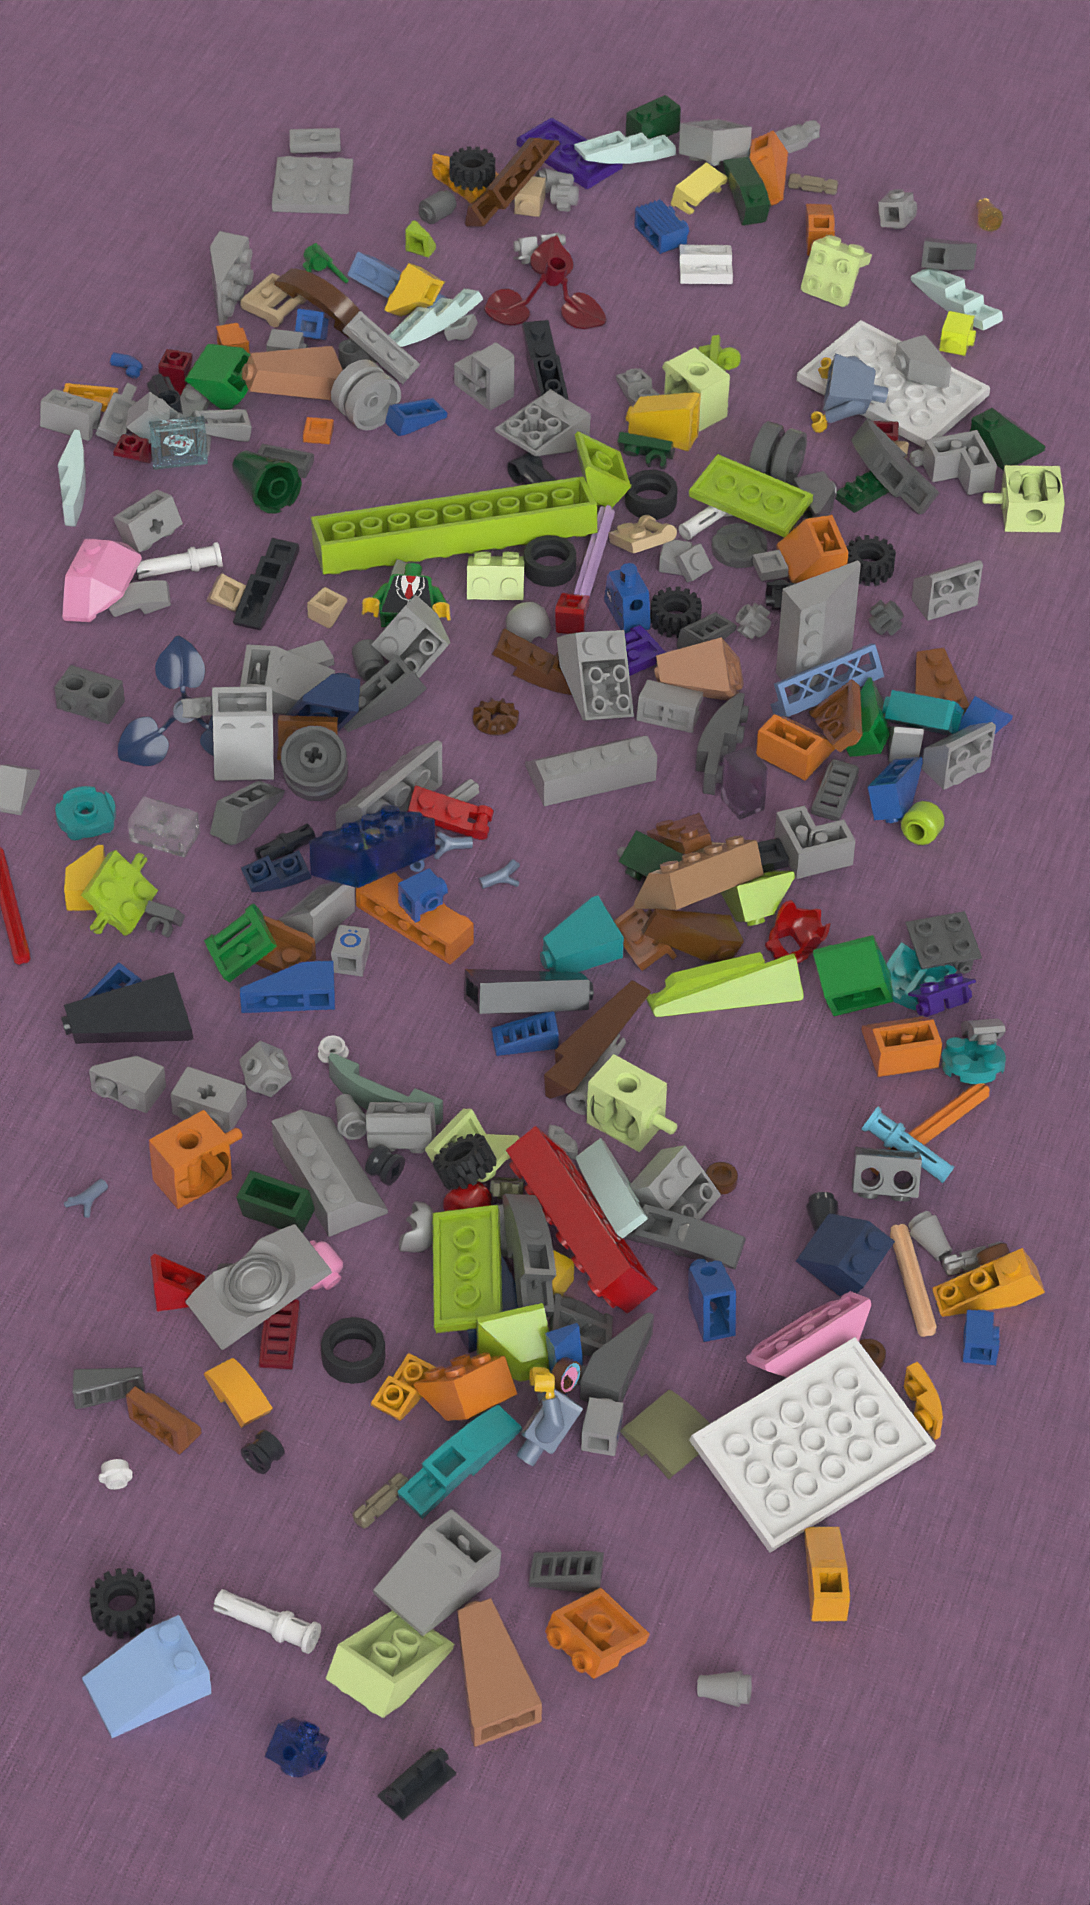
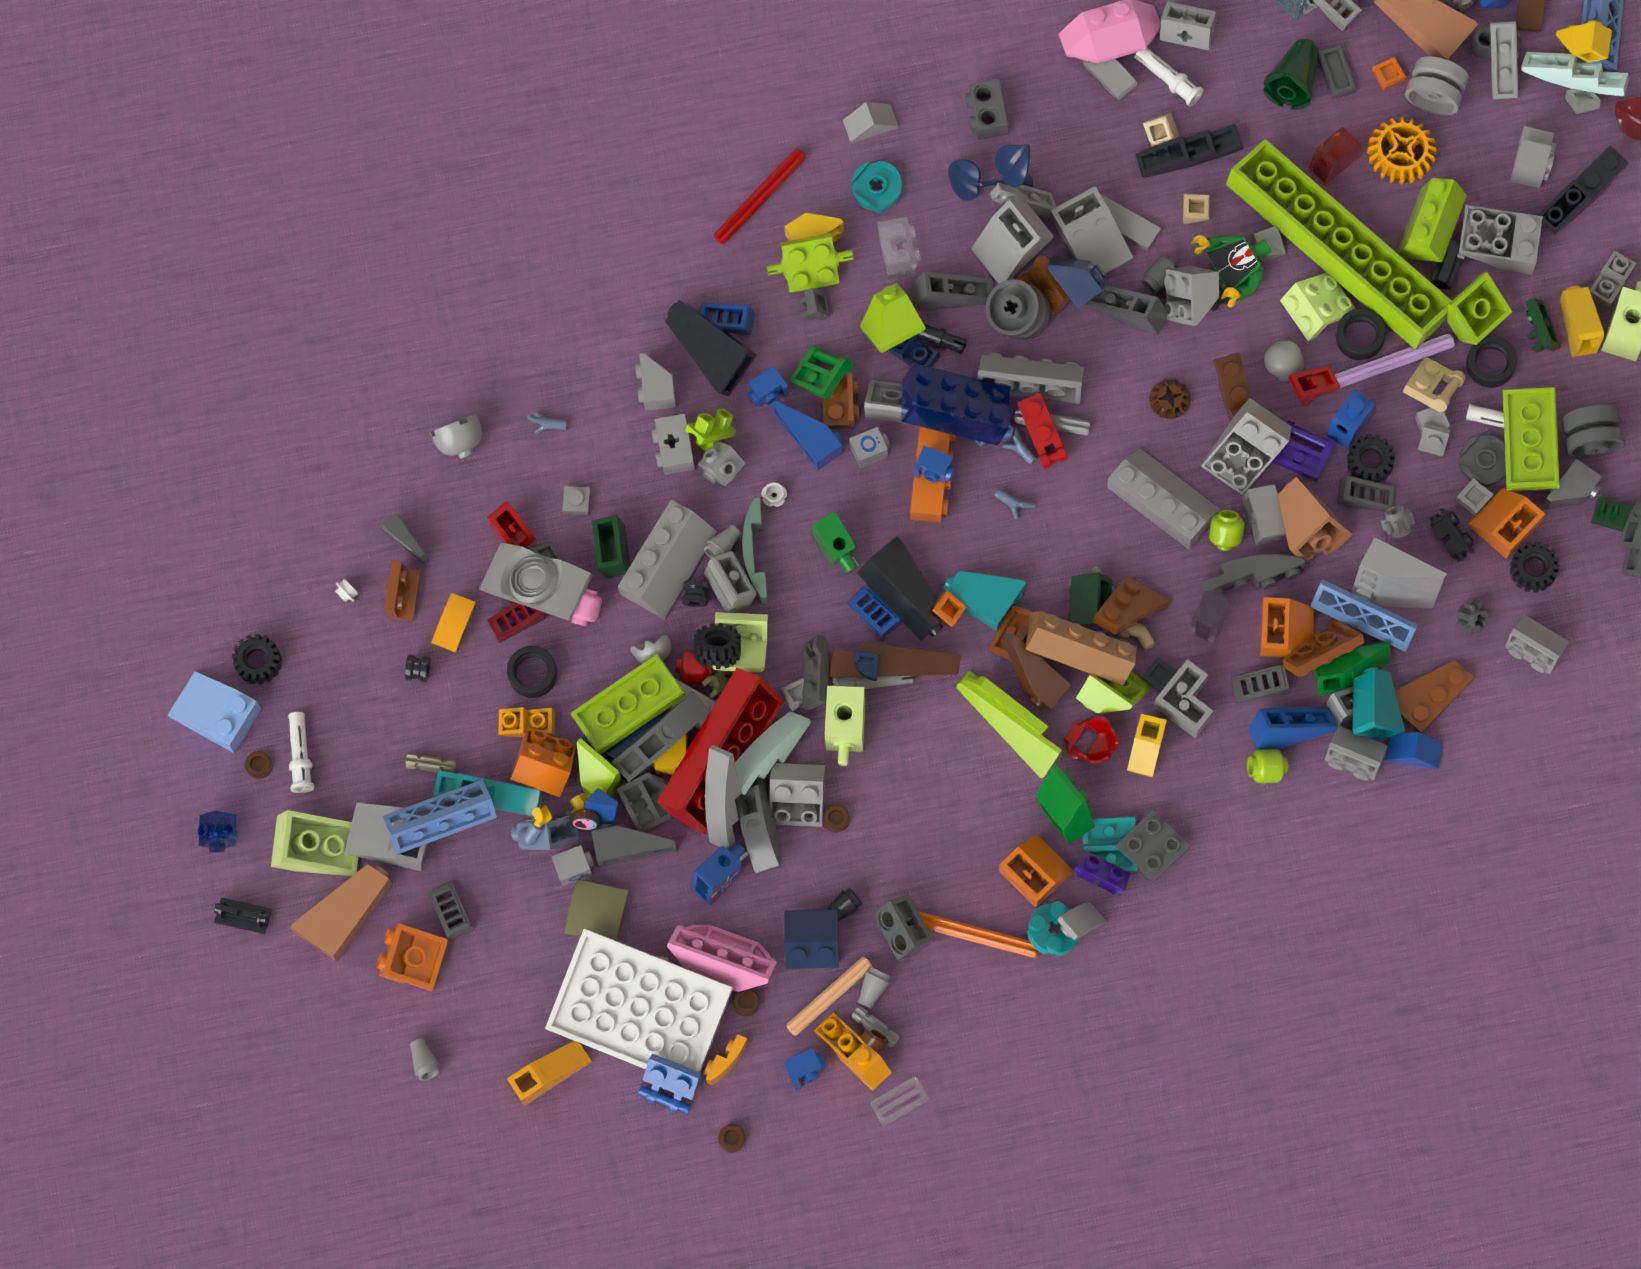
camera: 65 degrees right, 25 degrees up
(35, 1273) = (459, 436): none -> light grey cylinder
(192, 1158) = (610, 470): orange piece -> none
(193, 1217) = (576, 500): none -> light grey plate
(217, 994) = (767, 387): none -> blue brick
(223, 1057) = (711, 429): none -> lime hips
(235, 860) = (891, 318): none -> lime slope
(246, 1672) = (258, 765): none -> reddish brown tile
(365, 476) = (1338, 152): none -> clear red torso
(400, 452) = (1411, 167): none -> light orange gear
(413, 415) = (1455, 140): blue slope -> none
(427, 1020) = (830, 532): none -> green torso
(471, 1496) = (441, 820): none -> medium blue fence
(484, 457) = (1432, 221): none -> lime slope
(557, 1108) = (815, 672): none -> dark grey hinge
(574, 963) = (949, 608): none -> orange slope
(585, 1052) = (867, 664): none -> dark blue tile
(638, 1234) = (720, 794): none -> light grey slope
(665, 734) = (1226, 530): none -> lime head
(834, 893) = (1146, 745): none -> yellow slope
(895, 1136) = (937, 914): medium azure pin -> none
(913, 1453) = (671, 1077): none -> plate
(1014, 1446) = (732, 1138): none -> reddish brown tile
(1069, 1258) = (919, 1089): none -> clear tile

